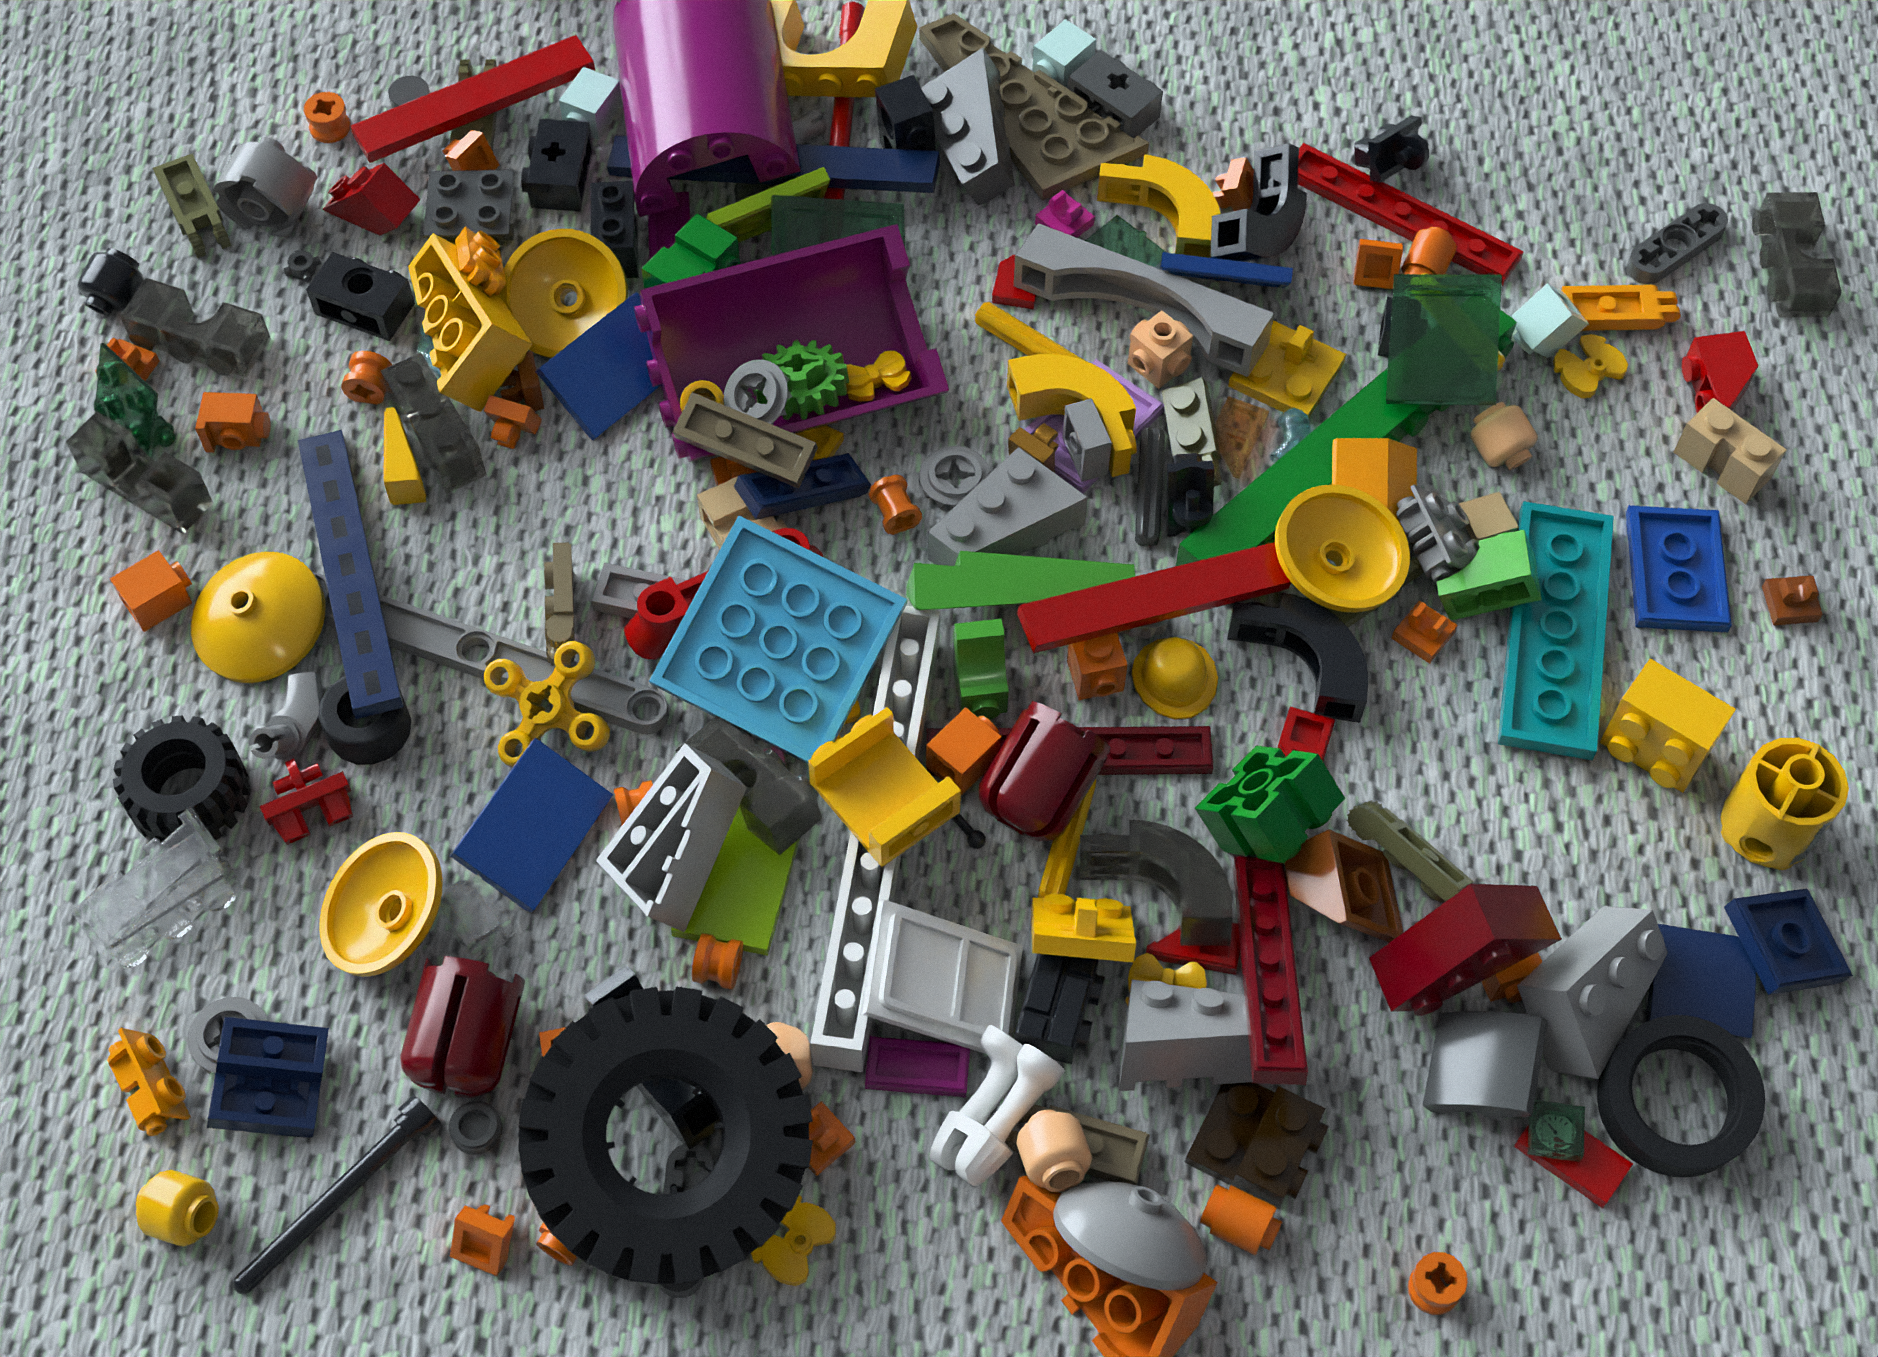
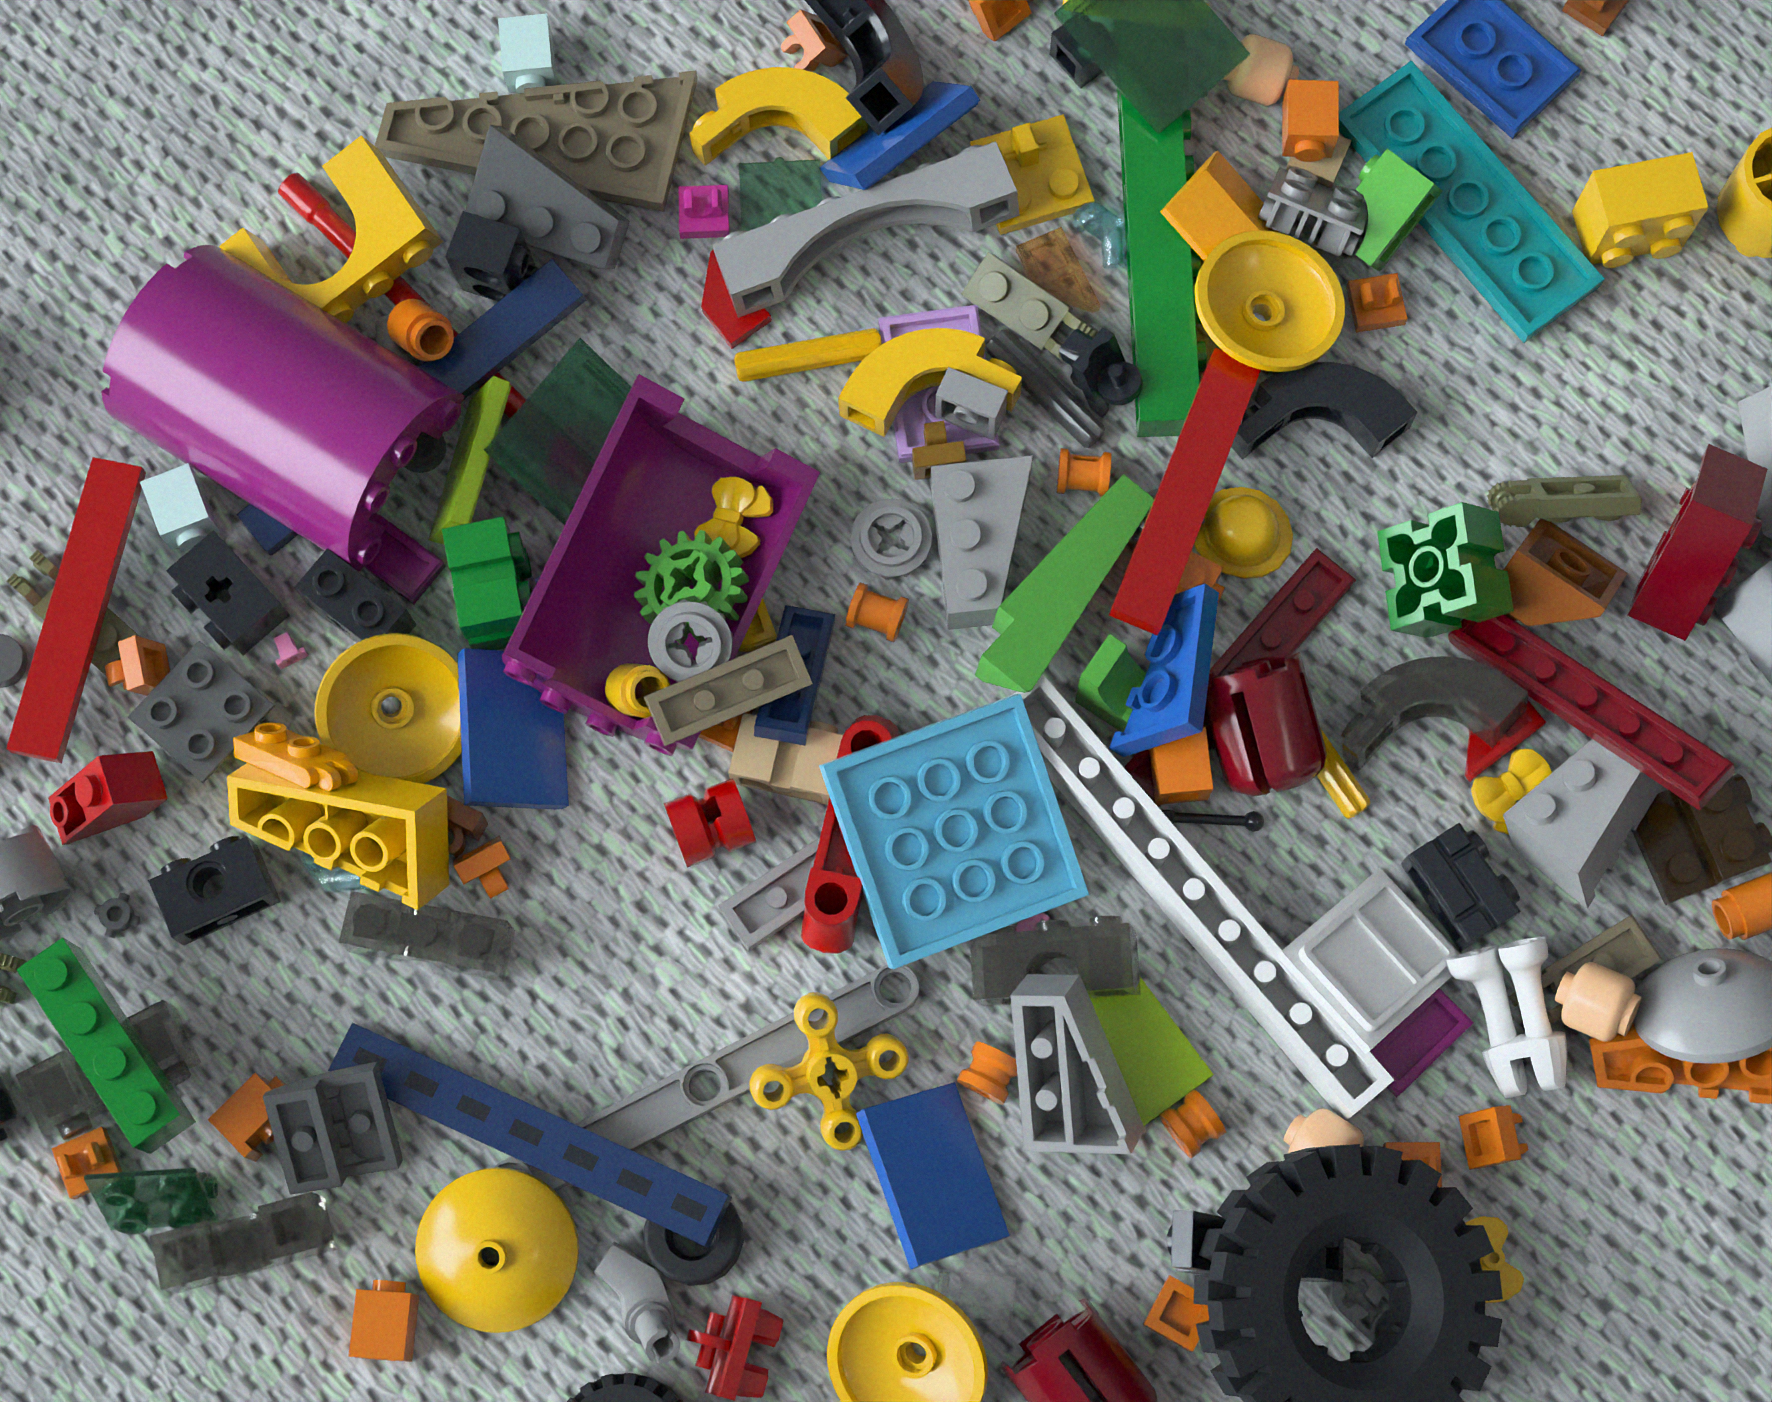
camera: 45 degrees left, 15 degrees up
(199, 299) = (106, 1046): none -> green brick
(259, 464) = (333, 1128): none -> dark grey slope
(365, 379) = (316, 955): orange wheel -> none
(400, 468) = (453, 1003): yellow slope -> none
(556, 222) = (288, 651): none -> bright pink piece
(560, 607) = (733, 978): dark tan hinge -> none
(651, 514) = (691, 817): none -> red wheel
(812, 132) = (420, 330): none -> orange brick
(881, 788) = (1181, 867): yellow panel -> none
(889, 1167) = (1491, 1137): none -> orange tile
(1031, 676) = (1177, 678): none -> blue wing
(1082, 928) = (1423, 813): yellow hinge -> none
(1112, 544) = (1083, 472): none -> orange bush
(1117, 93) = (590, 44): dark grey brick -> none
(1160, 348) = (925, 258): light nougat brick -> none
(1305, 732) = (1394, 488): red tile -> none
(1499, 483) = (1310, 119): none -> orange brick

